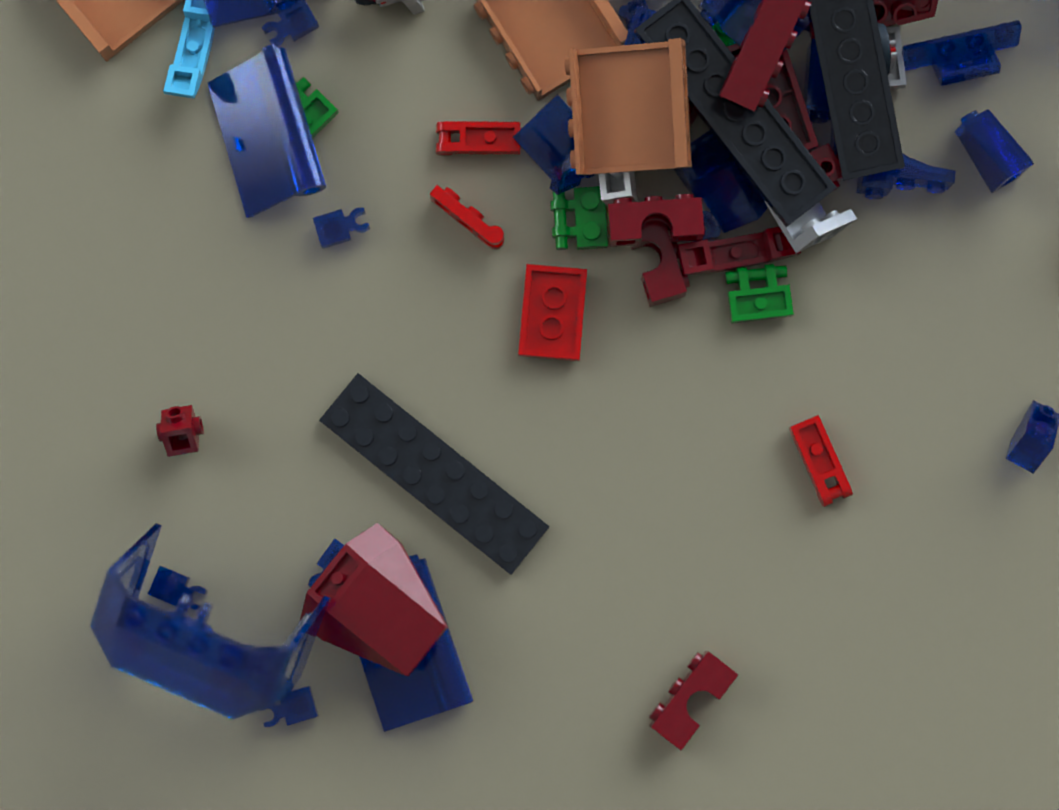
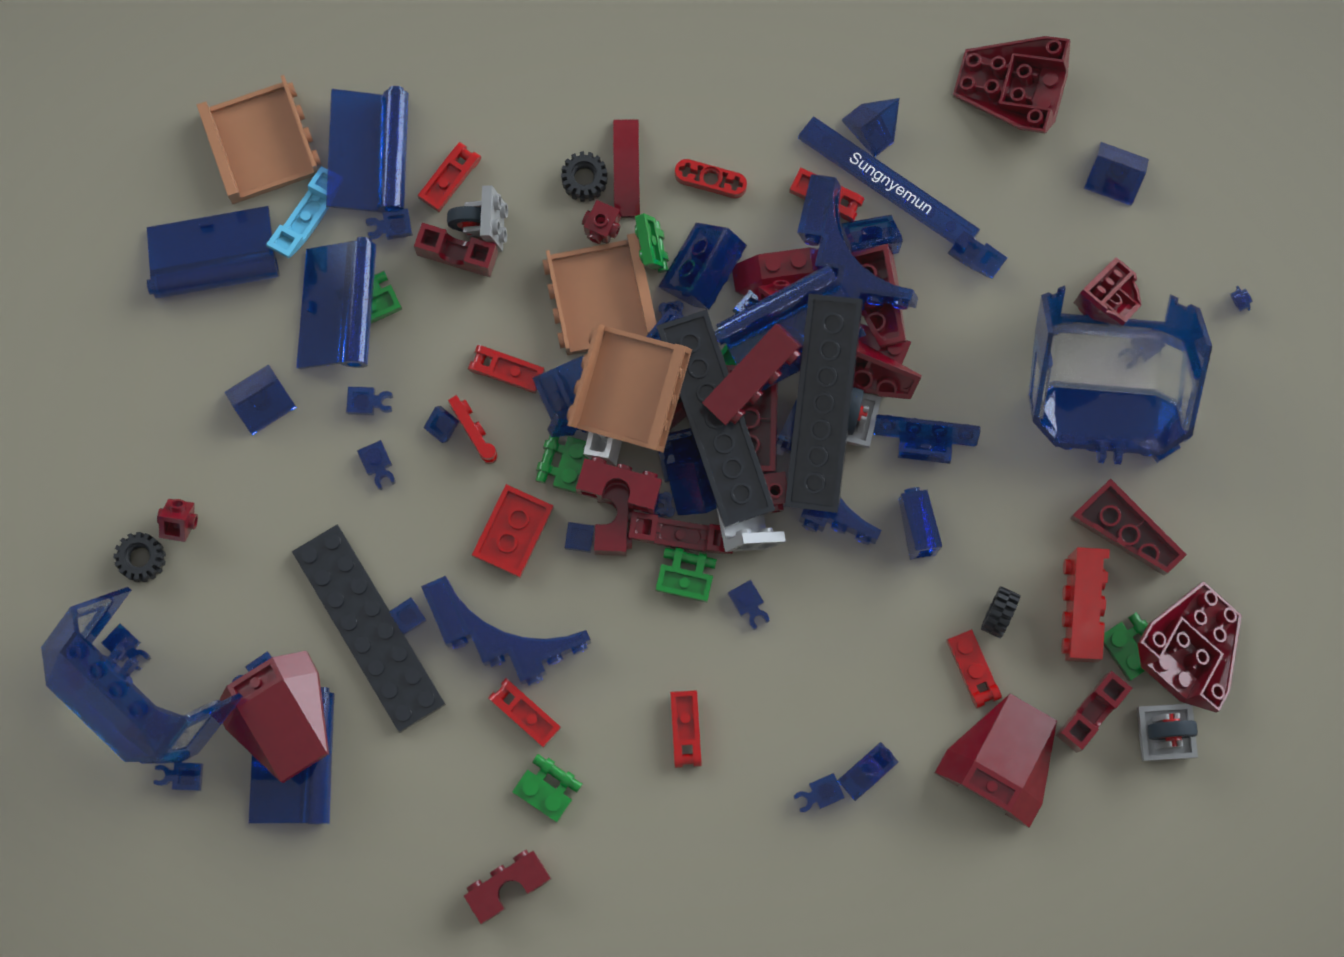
camera: 15 degrees right, 5 degrees down
(103, 123) = (210, 252): none -> clear blue door
(135, 481) = (124, 552): none -> black tyre
(220, 266) = (260, 399): none -> clear blue slope
(355, 28) = (470, 255): none -> dark red arch
(373, 289) = (376, 461): none -> clear blue plate
(430, 223) = (441, 424): none -> clear blue plate
(473, 445) = (407, 616): none -> clear blue plate
(619, 442) = (494, 645): none -> clear blue arch
(627, 294) = (579, 537): none -> clear blue tile
(641, 505) = (525, 713): none -> red plate
(694, 587) = (541, 794): none -> green plate
(834, 299) = (747, 600): none -> clear blue plate
(994, 476) = (823, 792): none -> clear blue plate

